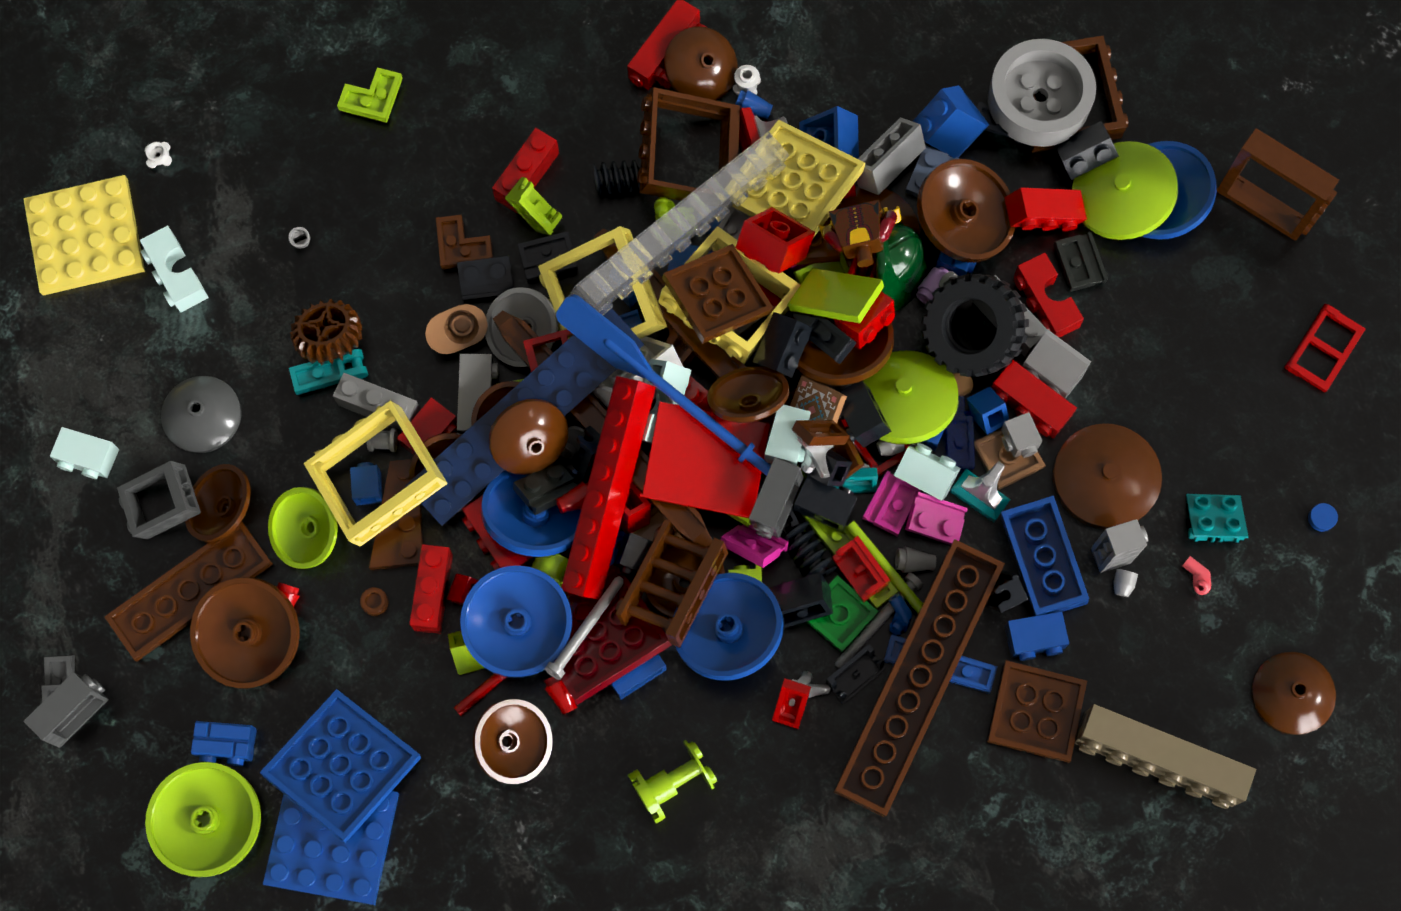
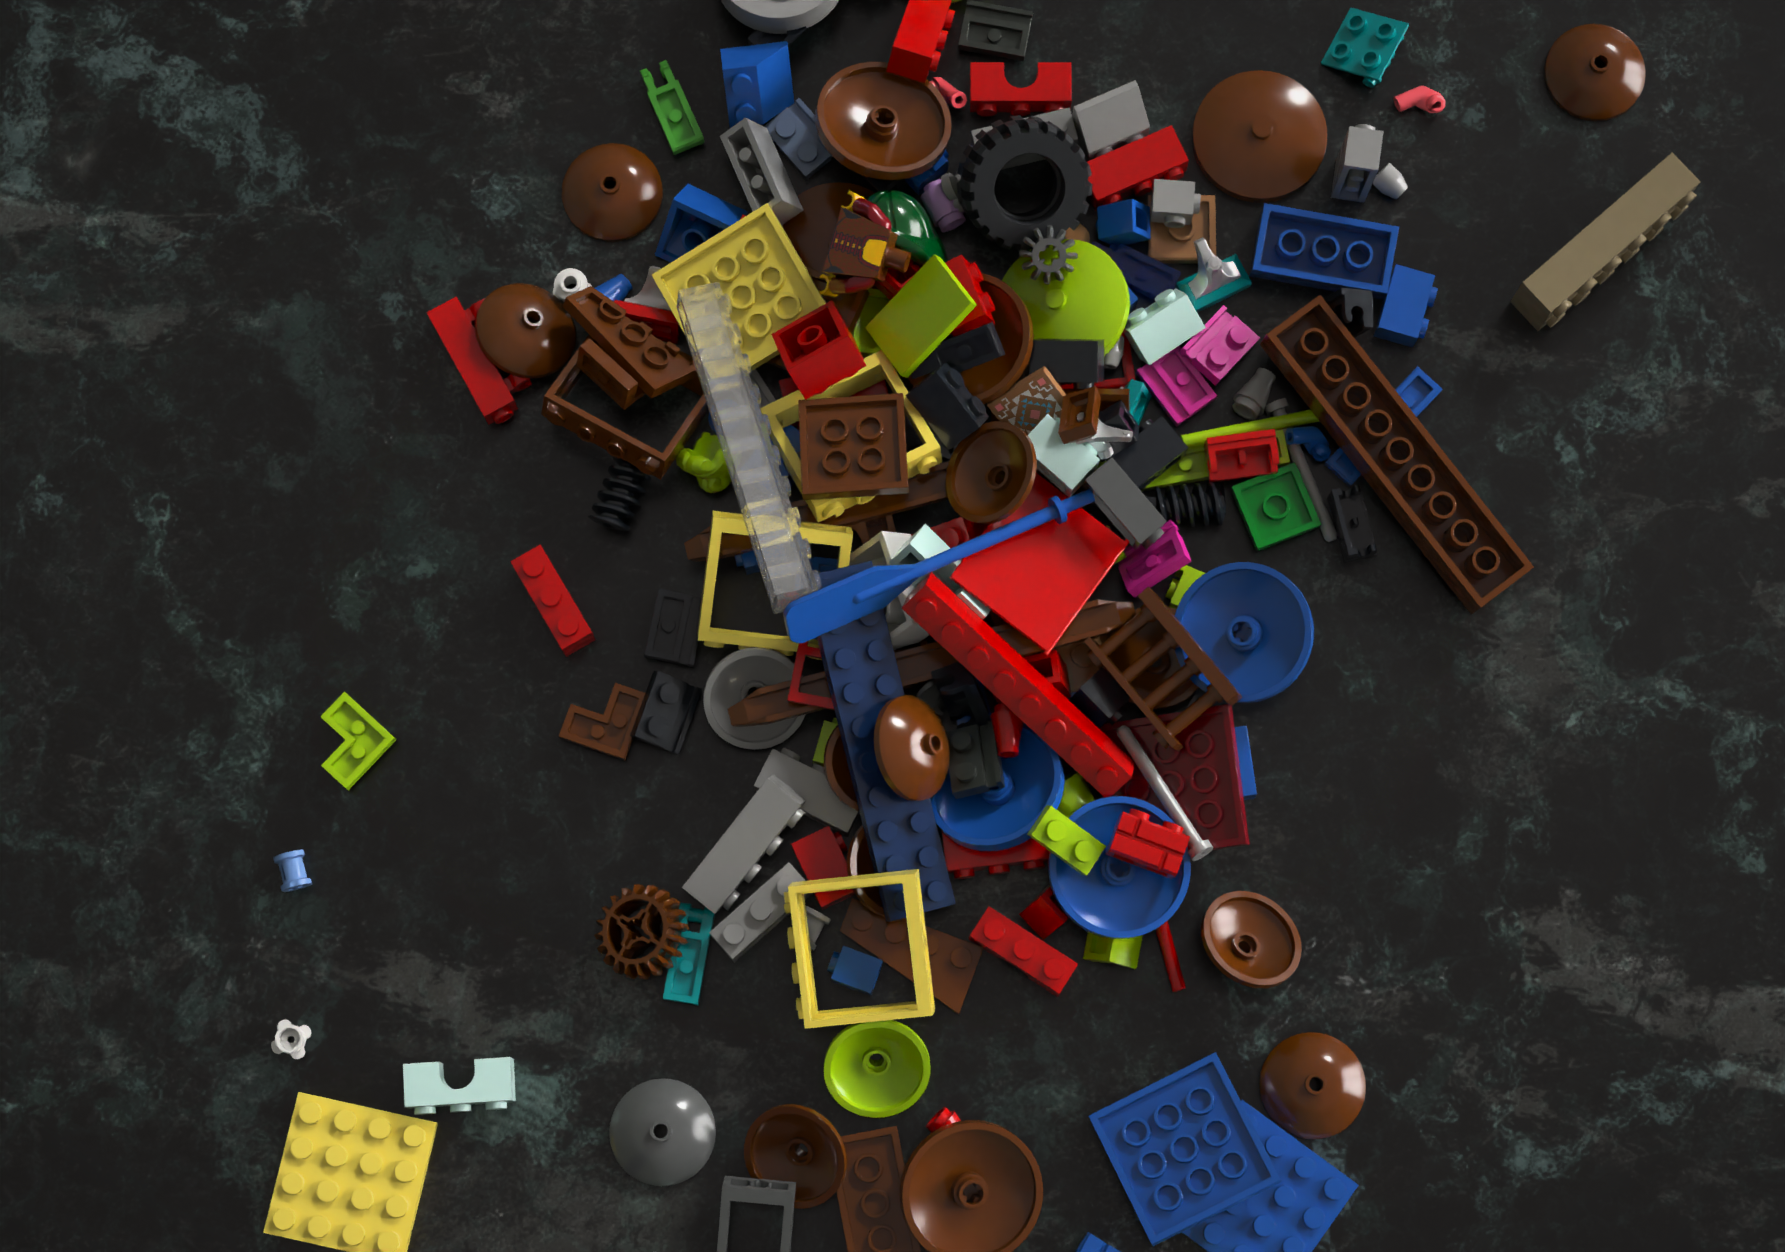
camera: 65 degrees left, 5 degrees up
(268, 101) = (292, 870): none -> medium blue bush
(296, 233) = (505, 911): light grey hinge -> none
(374, 601) = (1001, 1027): reddish brown tile -> none
(416, 367) = (744, 843): none -> light grey brick
(451, 842) = (1287, 1092): none -> reddish brown dish
(456, 329) = (718, 775): medium nougat piece -> none
(513, 571) = (1066, 840): none -> lime plate
(533, 207) = (610, 613): lime hinge -> none
(538, 629) = (1148, 843): none -> red brick
(560, 695) = (1219, 862): red cone -> none
(663, 785) = (1382, 794): lime piece -> none
(695, 125) = (608, 374): none -> reddish brown panel
(721, 127) = (630, 343): none -> reddish brown wing
(794, 699) = (1353, 600): red piece -> none
(803, 599) = (1244, 534): black brick -> none
(823, 87) = (614, 212): none -> reddish brown dish
(904, 83) = (673, 111): none -> bright green hinge
(922, 370) = (1040, 245): none -> dark grey gear
(1019, 246) = (950, 94): none -> coral arm
(1037, 711) = (1488, 349): reddish brown plate -> none

